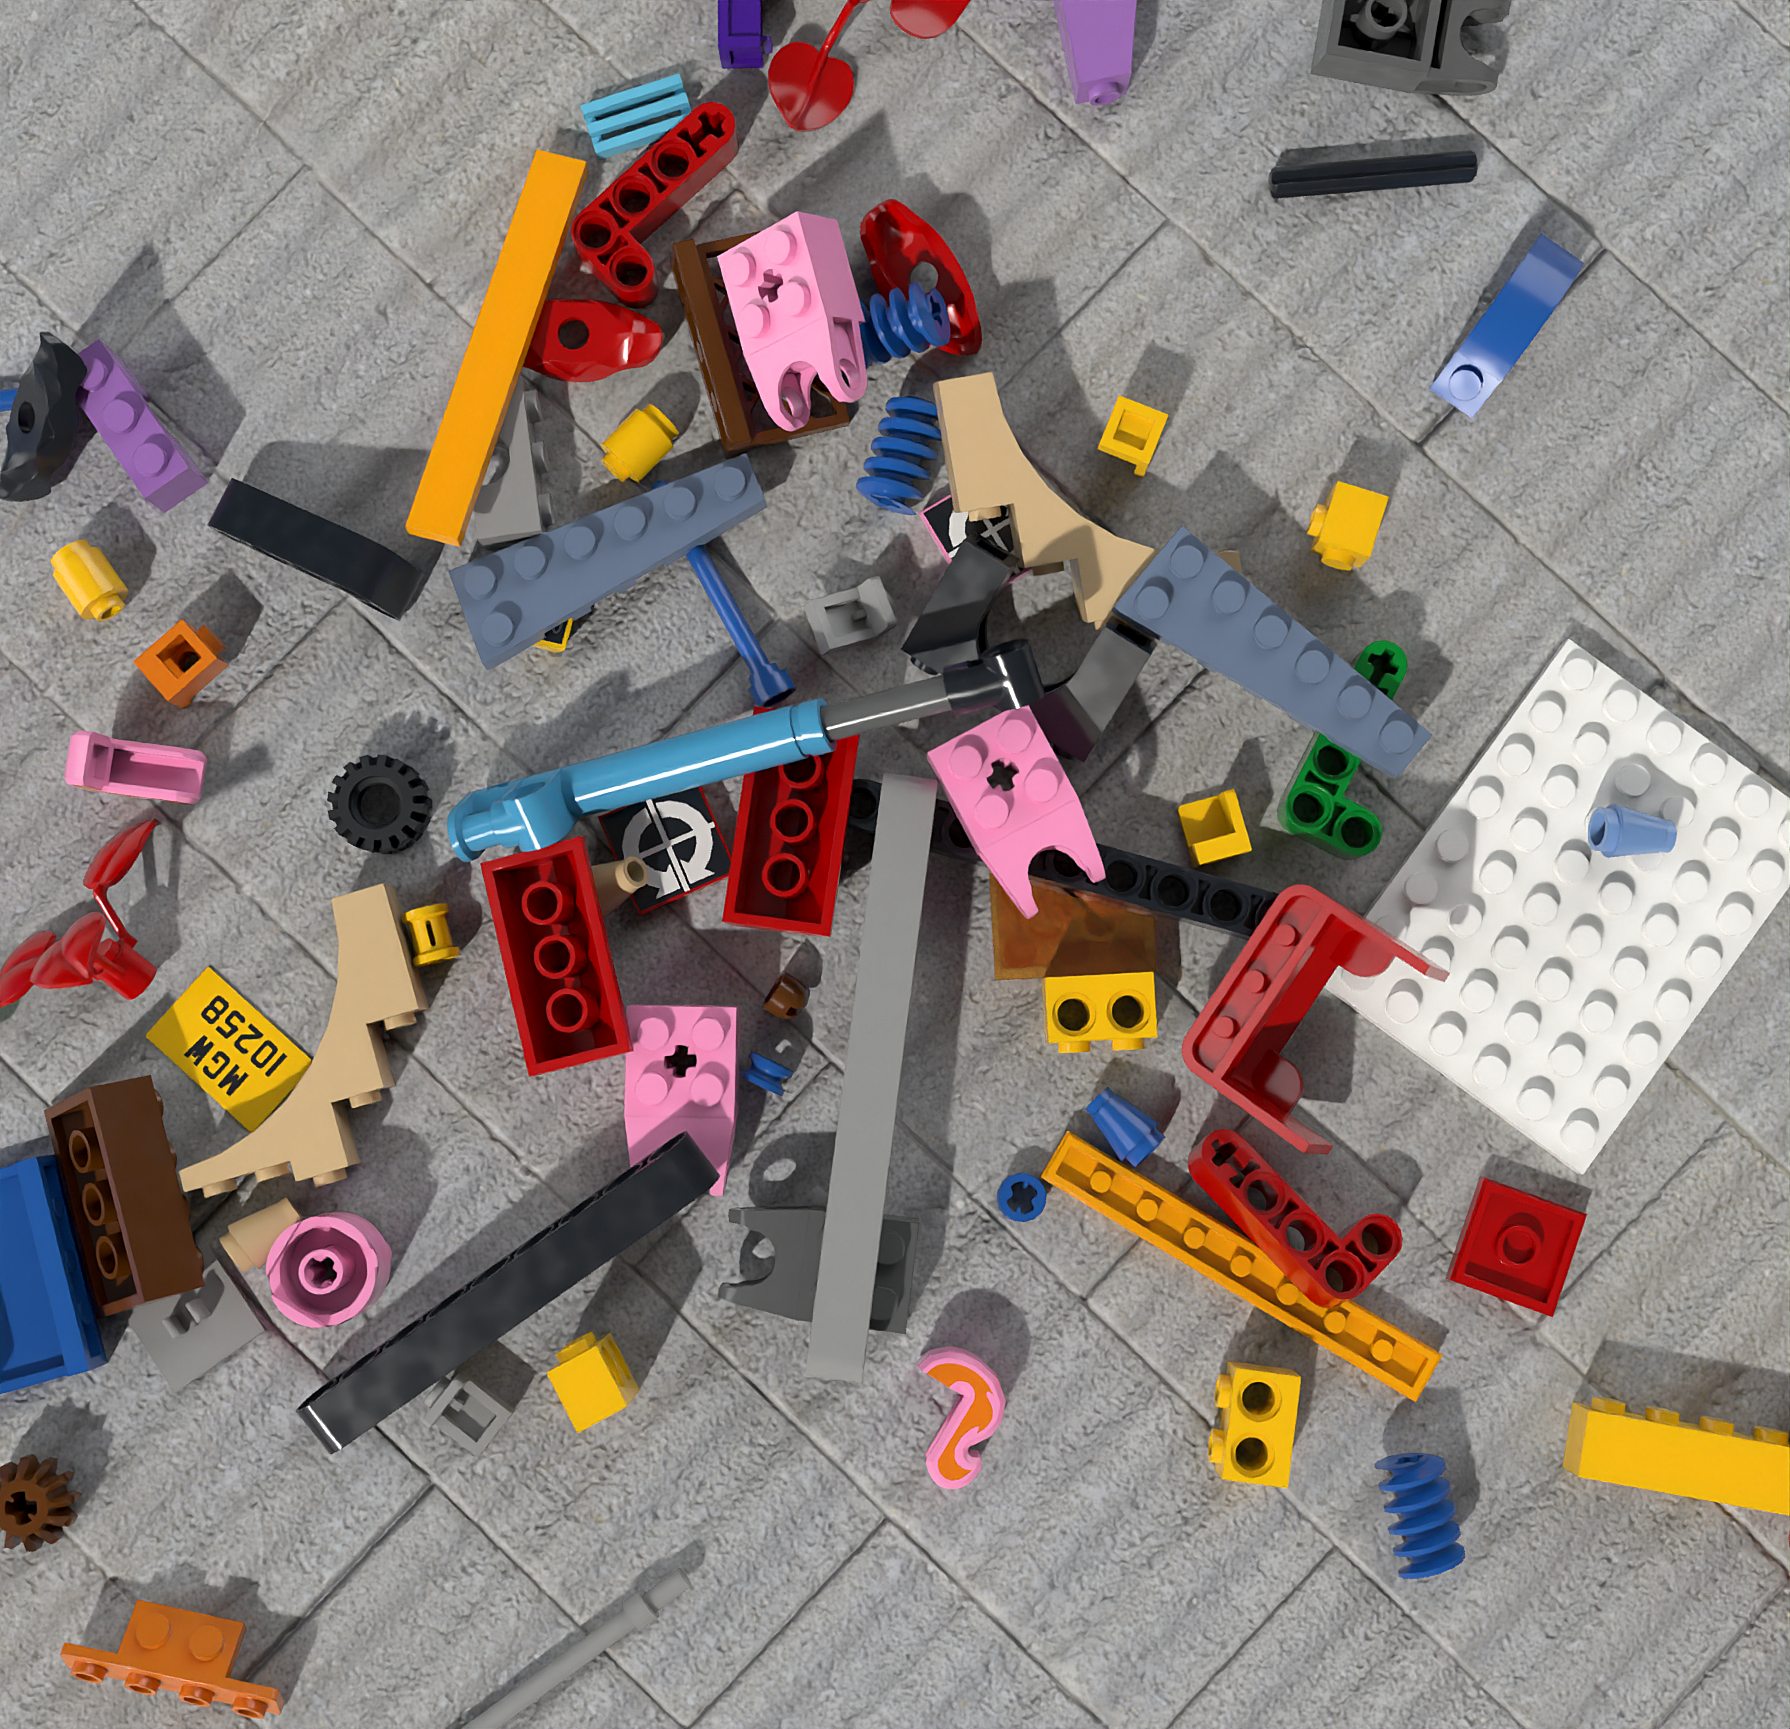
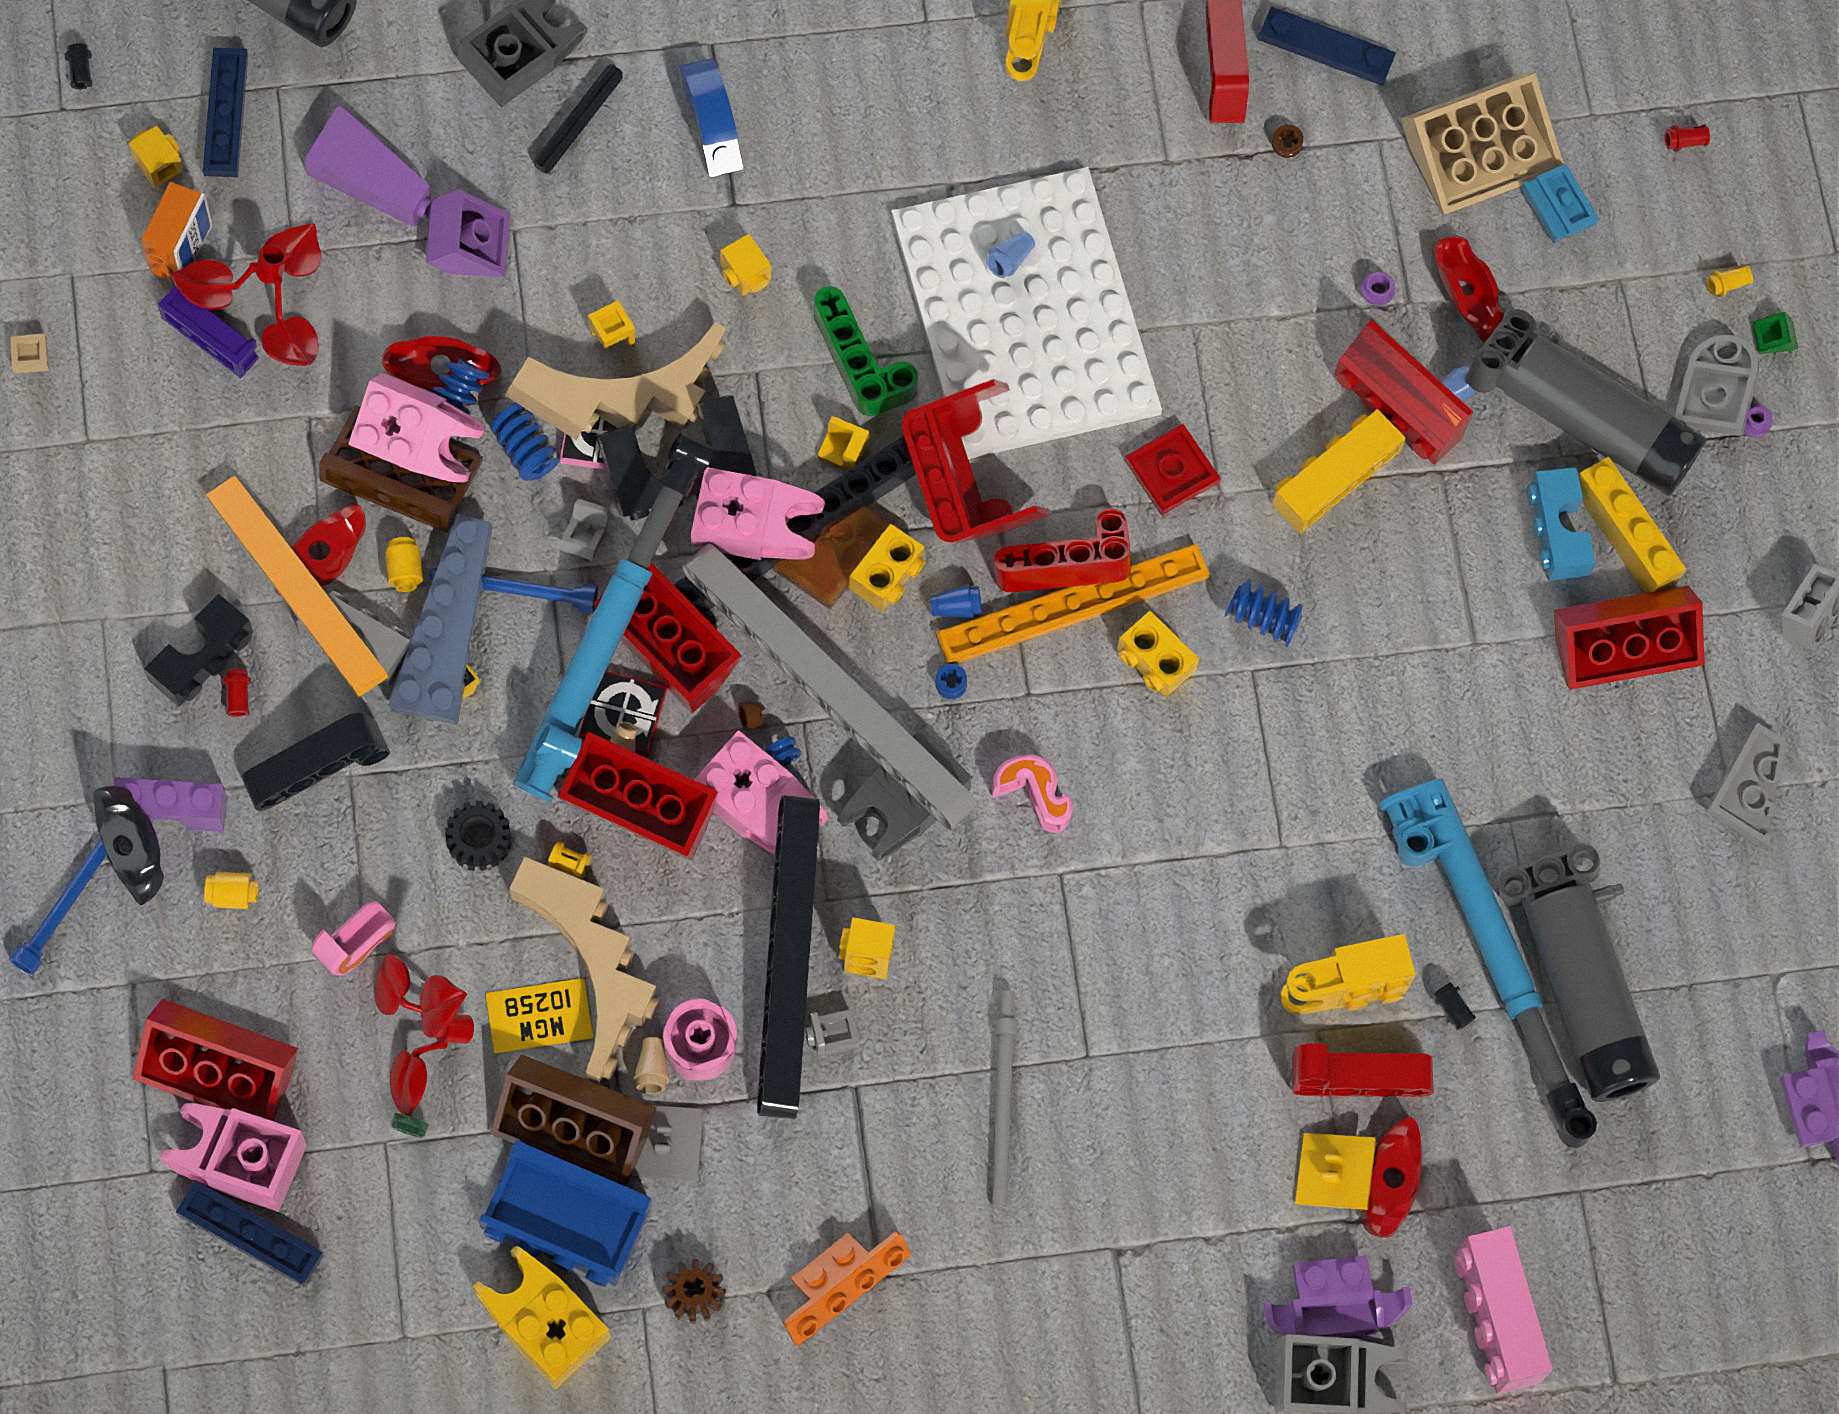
camera: 60 degrees left, 15 degrees down
(165, 662) = (317, 889): orange brick -> none
(331, 388) = (237, 692): none -> red pin
(387, 311) = (182, 675): none -> black arch
(630, 99) = (241, 411): medium azure tile -> none
(665, 198) = (283, 454): red beam -> none
(1110, 172) = (467, 236): none -> medium lavender slope
(1234, 629) = (750, 352): sand blue wing -> none

